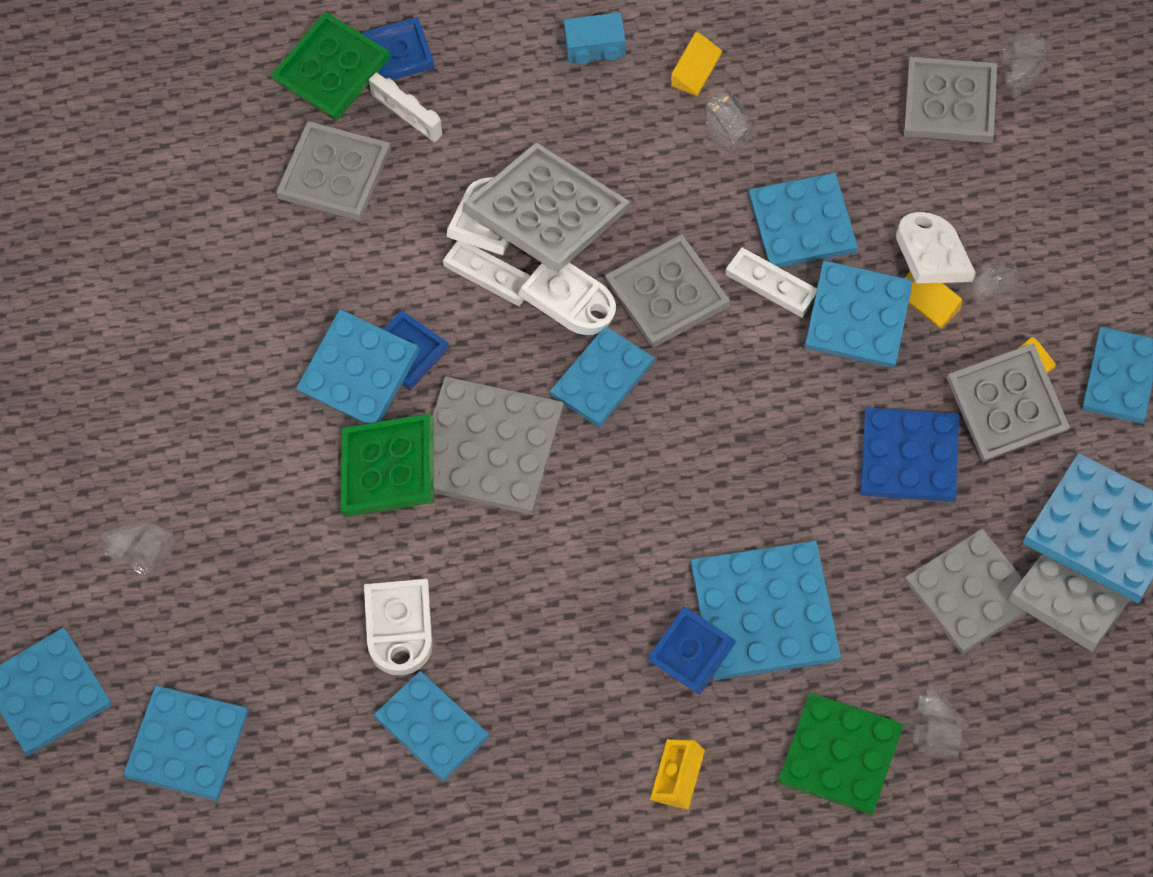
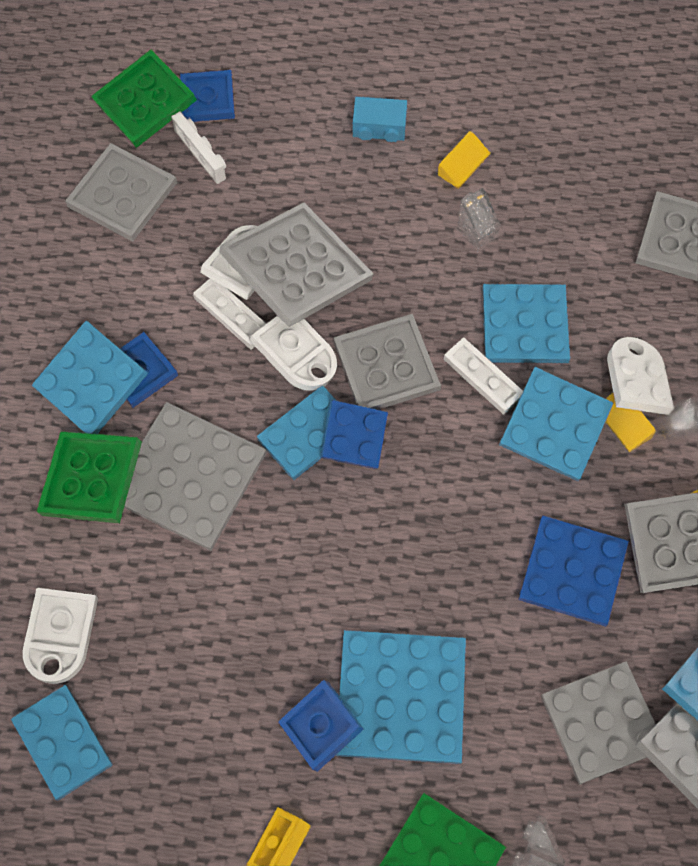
camera: 10 degrees right, 5 degrees up
(652, 367) = (354, 434): none -> blue plate

